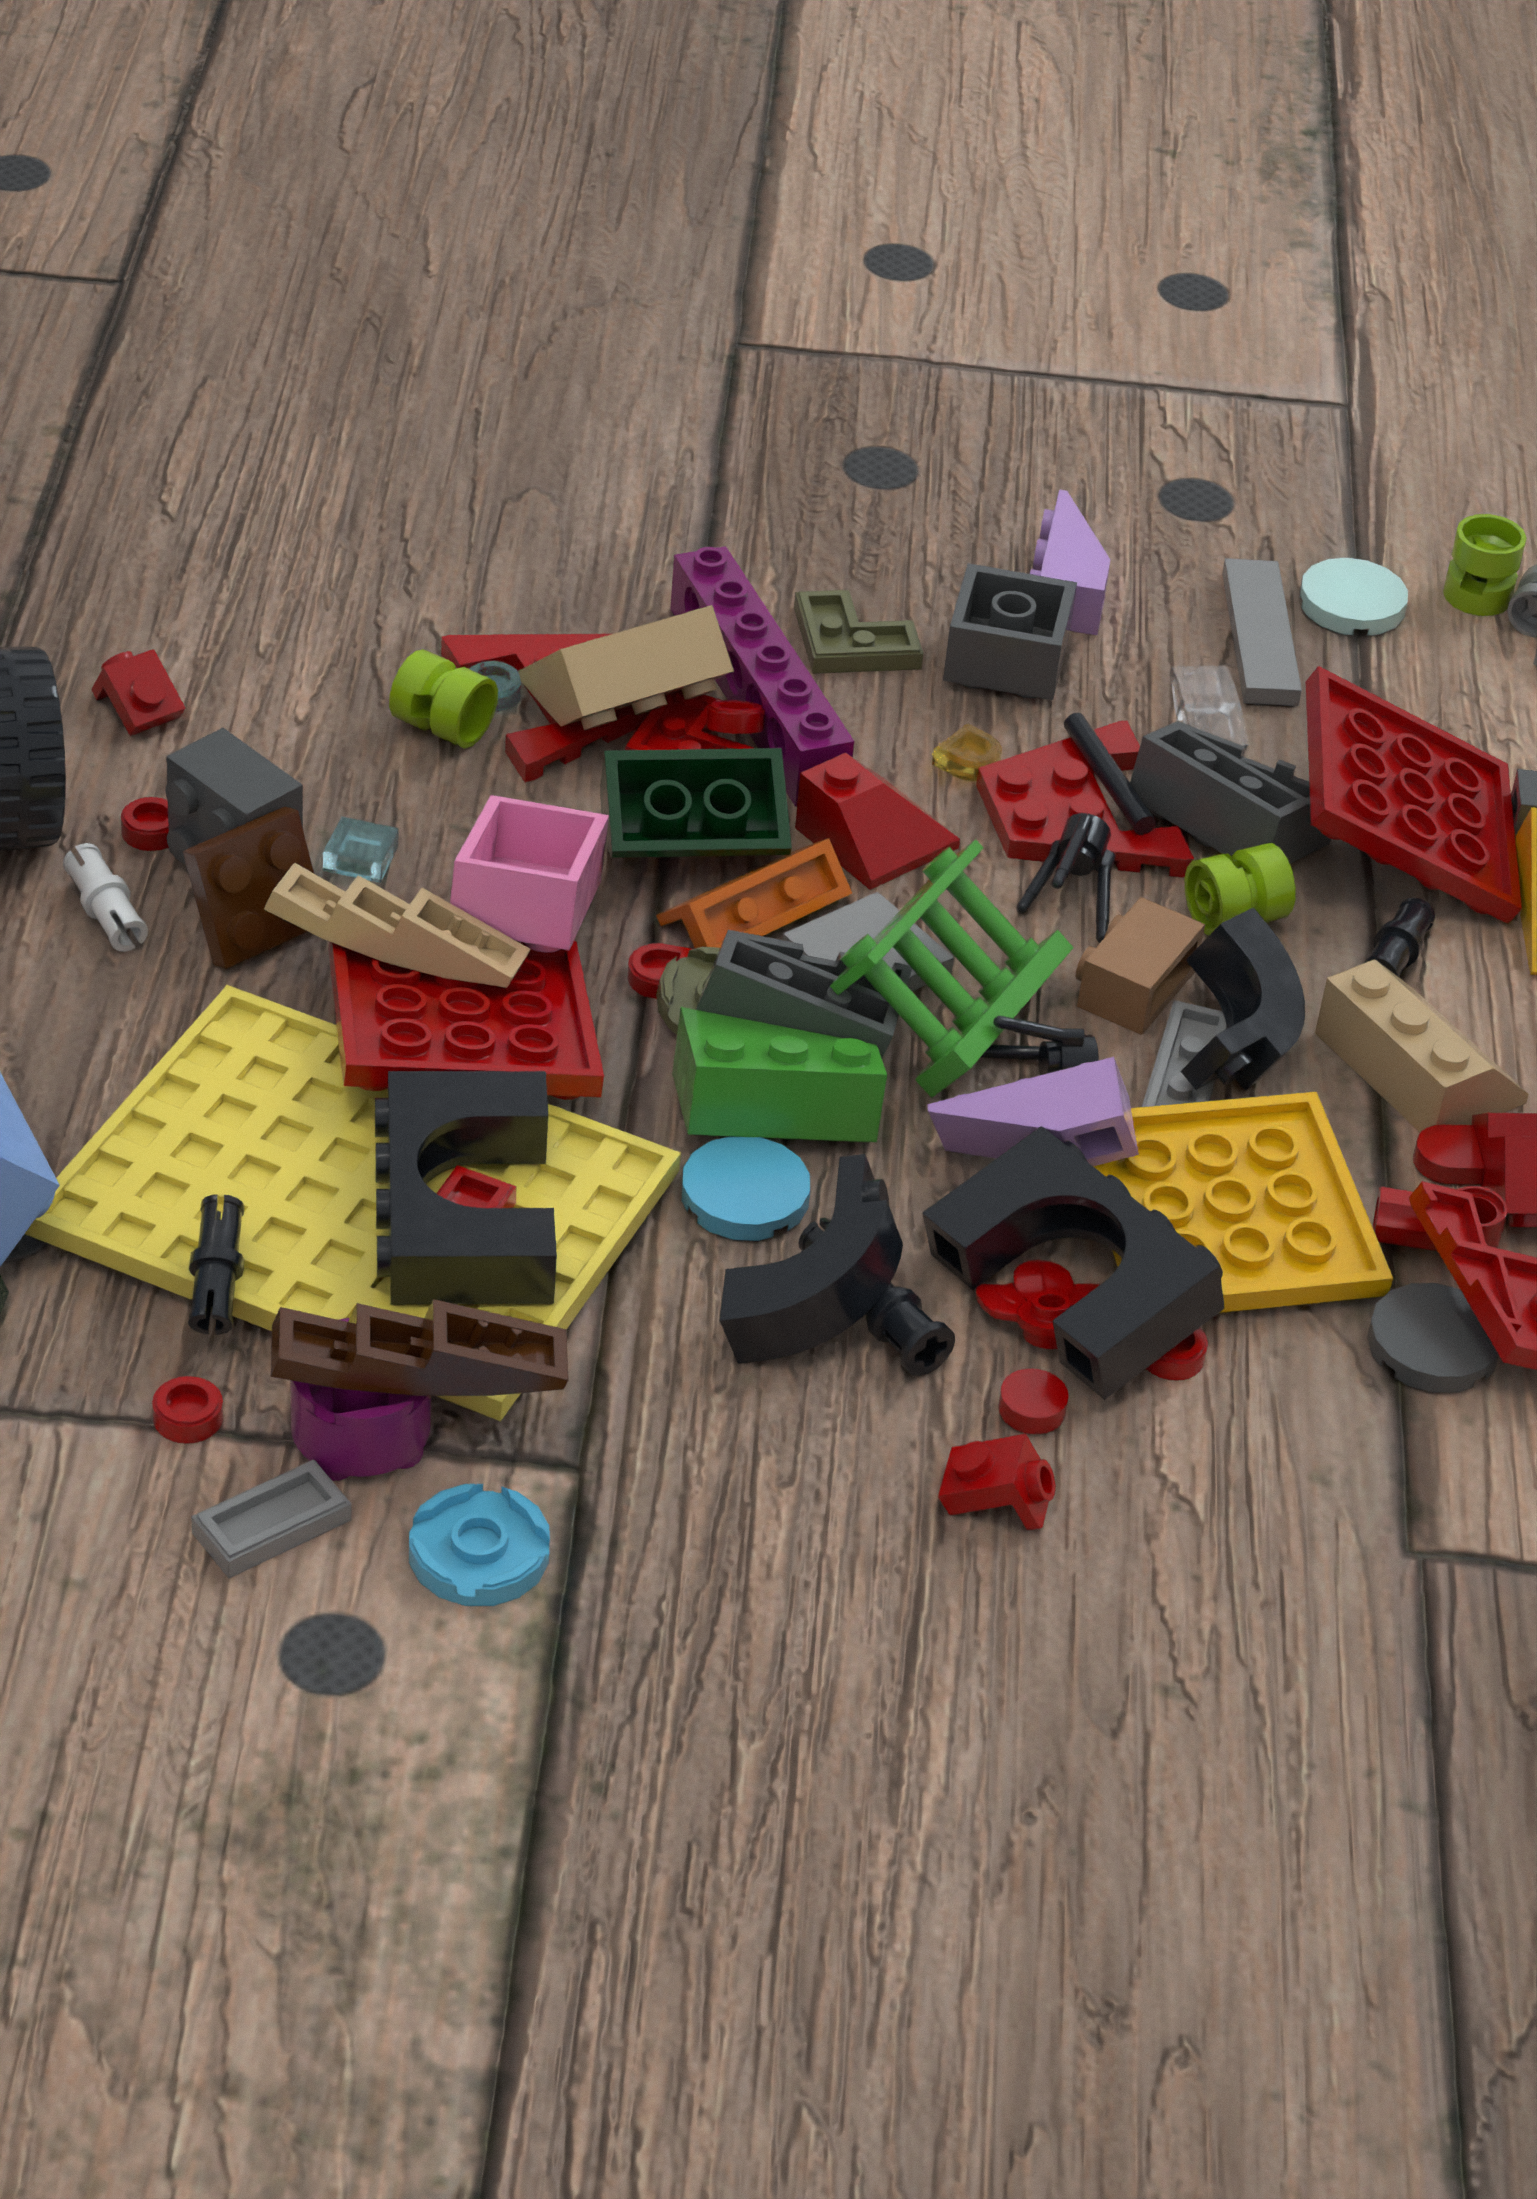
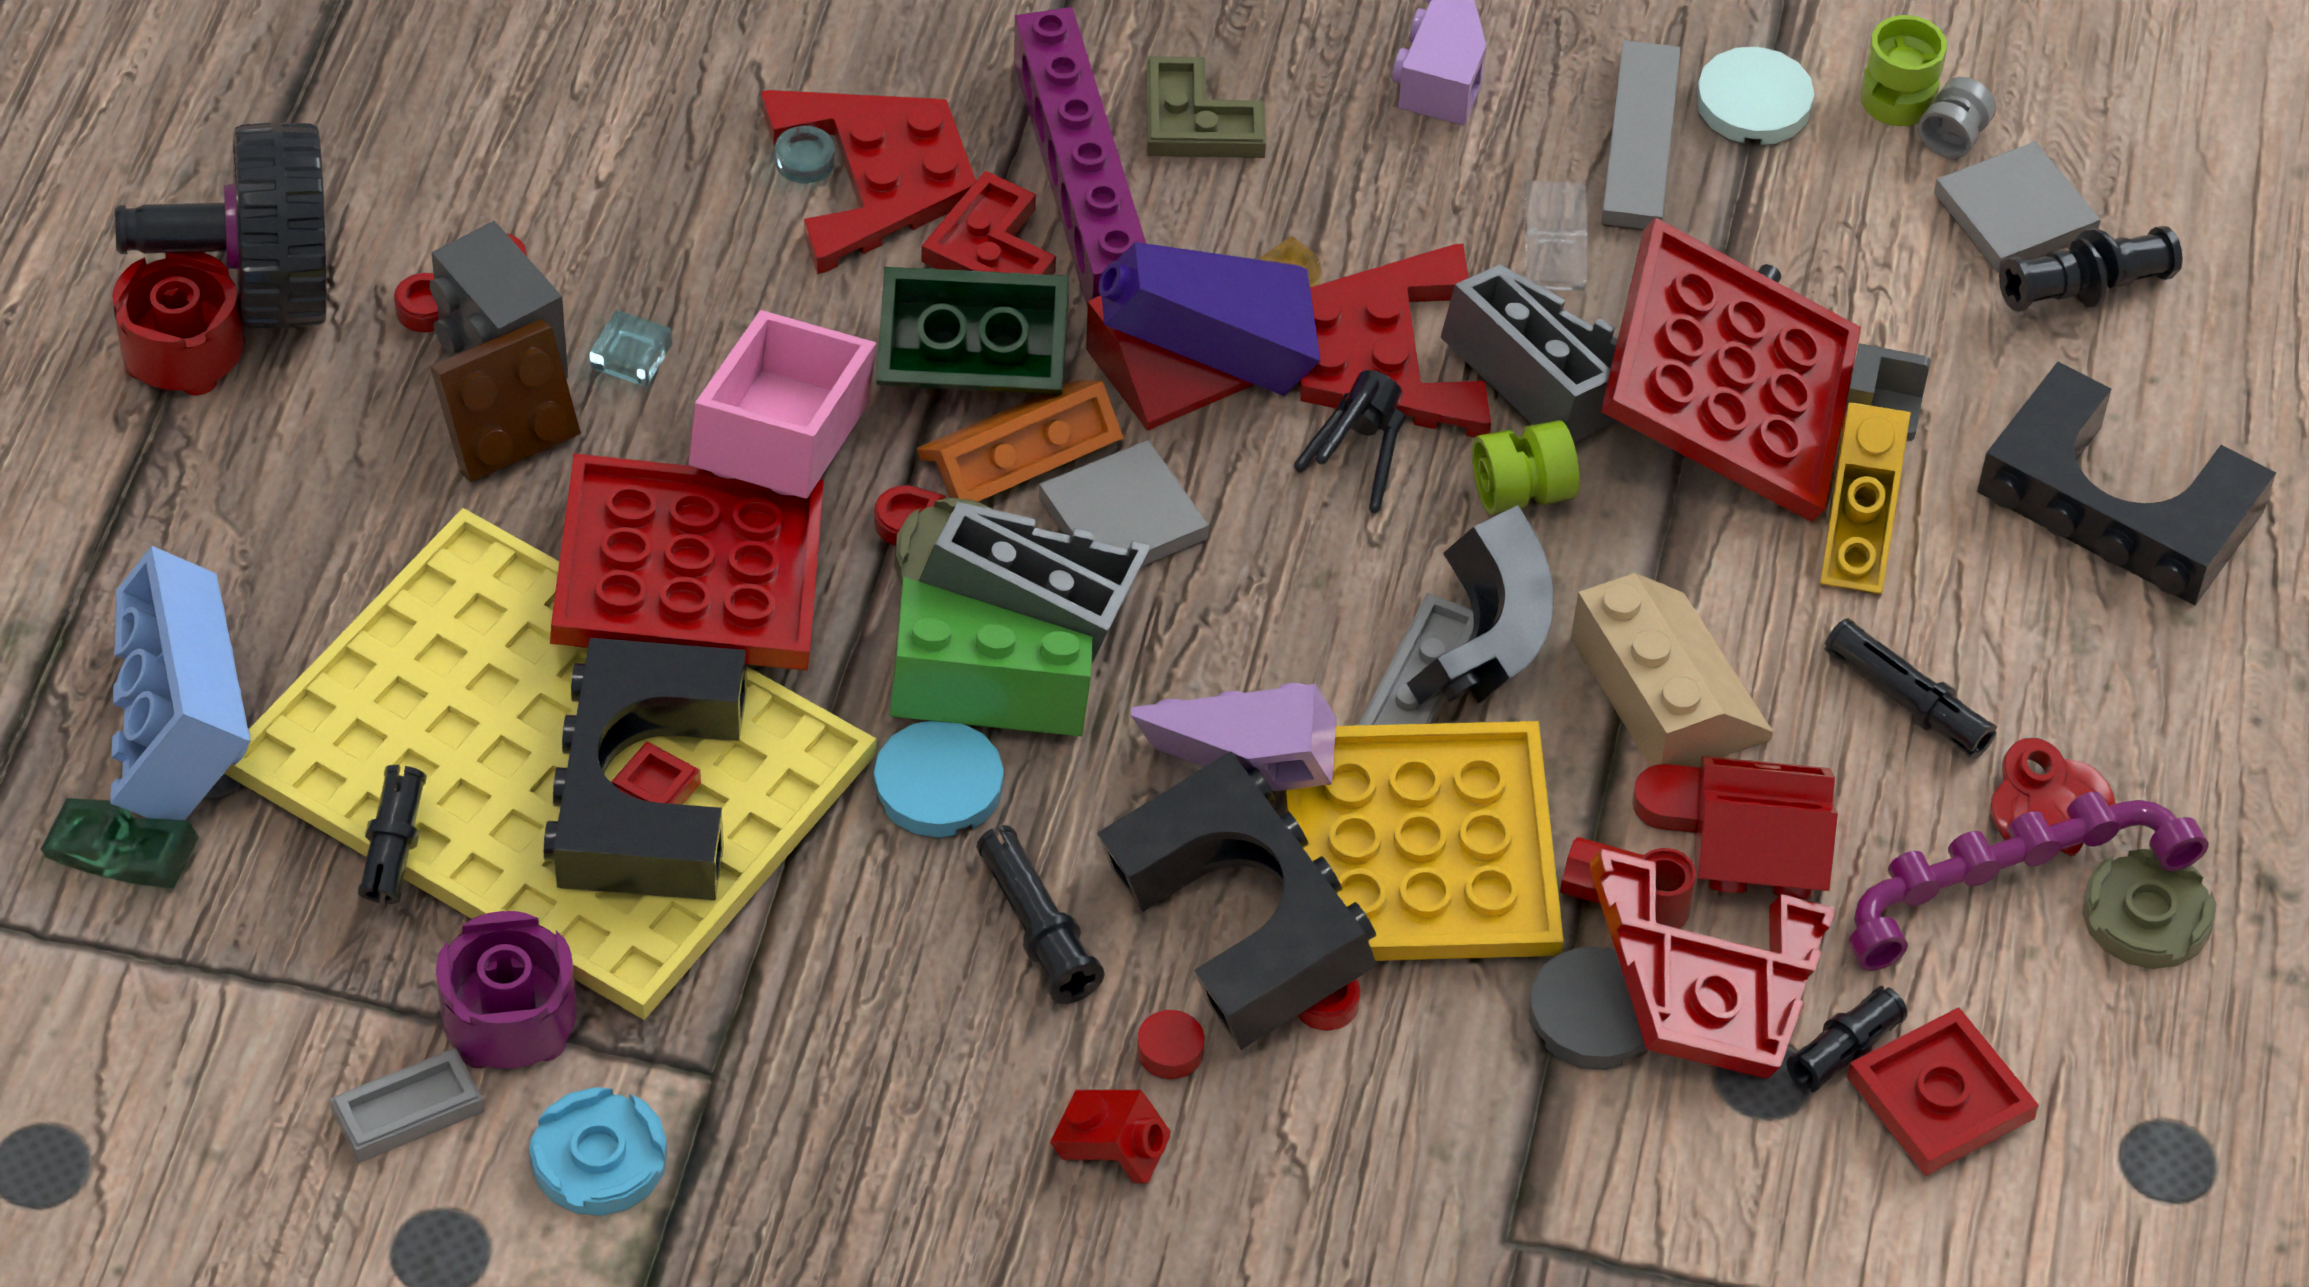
camera: 10 degrees right, 10 degrees up
(105, 897) = (362, 391): white pin -> none
(139, 690) = (437, 142): red bracket -> none
(187, 1409) = (347, 980): red tile -> none
(418, 936) = (651, 472): tan slope -> none
(443, 698) = (744, 174): lime wheel -> none
(443, 1354) = (555, 963): reddish brown slope -> none
(631, 669) = (939, 160): tan slope -> none
(735, 717) = (1042, 220): red tile -> none
(827, 1286) = (988, 905): black arch -> none
(924, 771) = (1216, 310): none -> dark purple slope
(1003, 990) = (1244, 574): bright green fence -> none
(1009, 631) = (1358, 128): dark grey brick -> none
(1034, 1299) = (1201, 929): red plate -> none
(1065, 1050) = (1293, 654): black plant -> none
(1109, 774) = (1424, 313): black bar -> none
(1138, 965) = (1397, 550): medium nougat piece -> none
(1400, 940) = (1683, 540): black pin -> none

